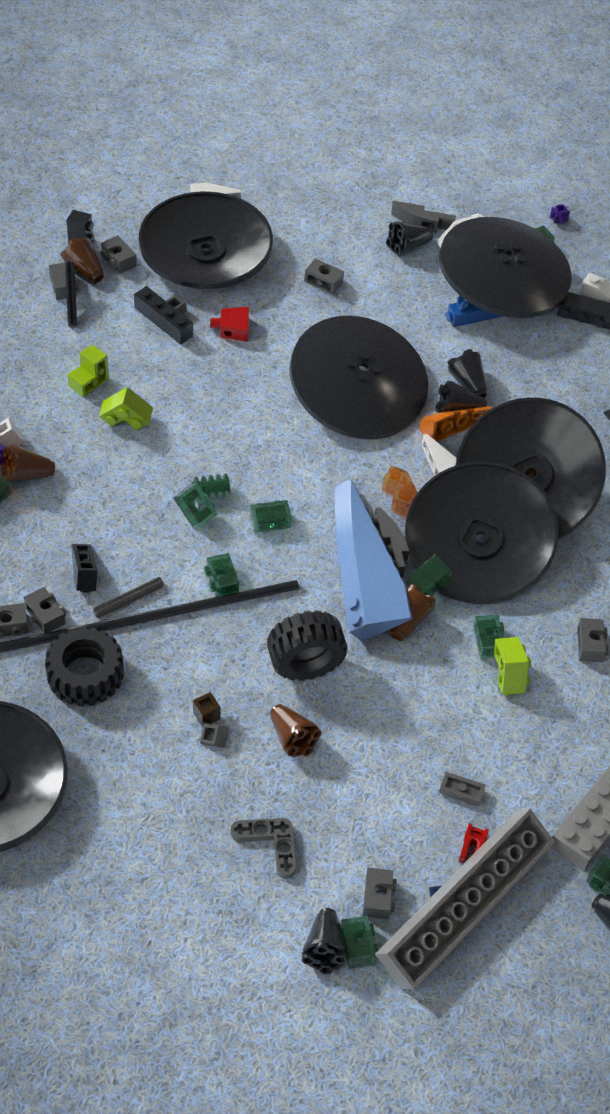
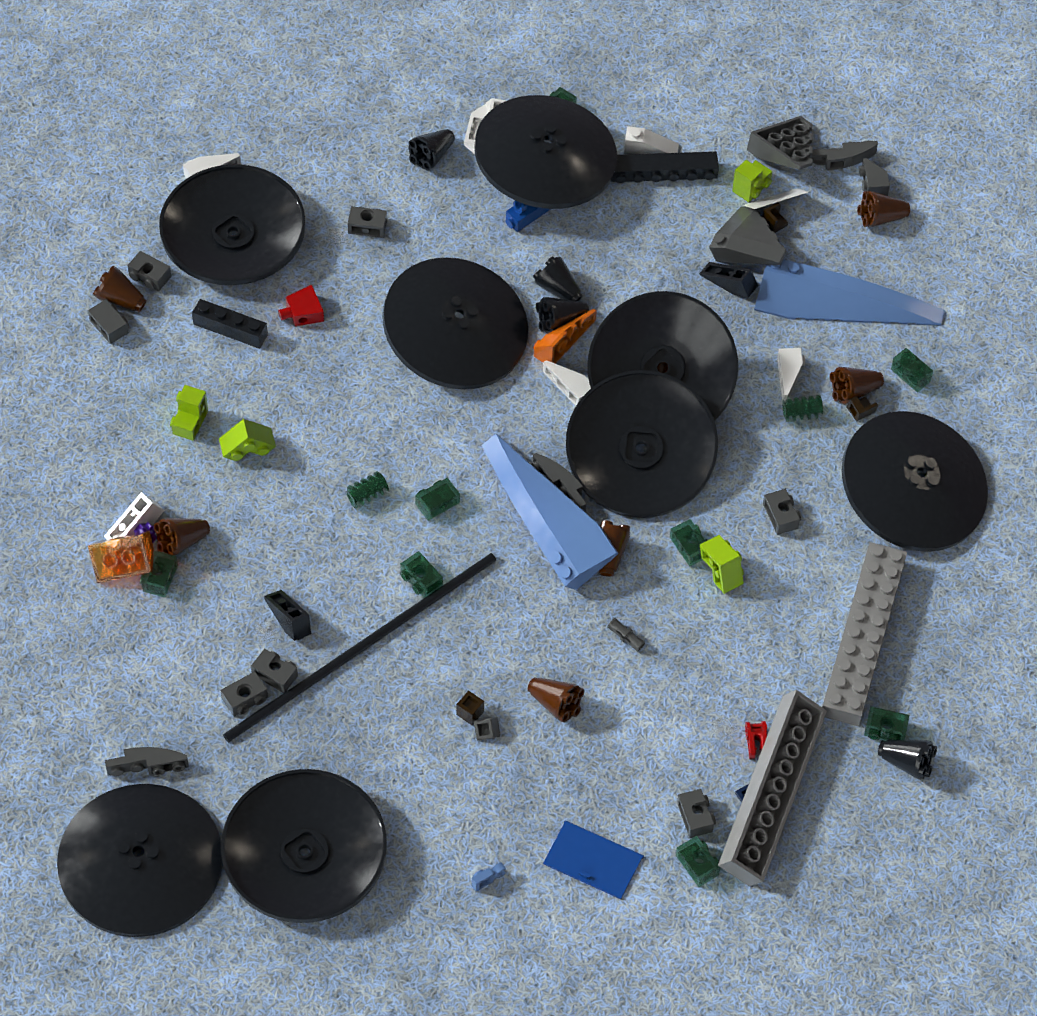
camera: 20 degrees left, 5 degrees up
(71, 293) = (127, 334): black axle -> none
(80, 225) = (98, 257): black brick -> none
(89, 687) = (341, 732): black tyre -> none
(128, 597) = (345, 626): dark grey axle -> none
(141, 875) = (485, 877): none -> medium blue plate
(177, 303) = (236, 305): dark grey slope -> none
(186, 503) = (364, 515): clear green brick -> none
(253, 893) = (593, 857): none -> blue container
(279, 839) = (588, 798): dark grey beam -> none
(306, 645) = (536, 615): black tyre -> none
(325, 943) = (672, 874): black cone -> none
(389, 698) = (626, 634): none -> dark grey pin
(400, 485) = (544, 421): clear orange brick -> none
(417, 215) = (430, 120): dark grey slope -> none
(430, 576) = (614, 505): clear green brick -> none
(462, 788) = (726, 693): dark grey plate -> none
(559, 214) = (568, 66): dark purple gear -> none

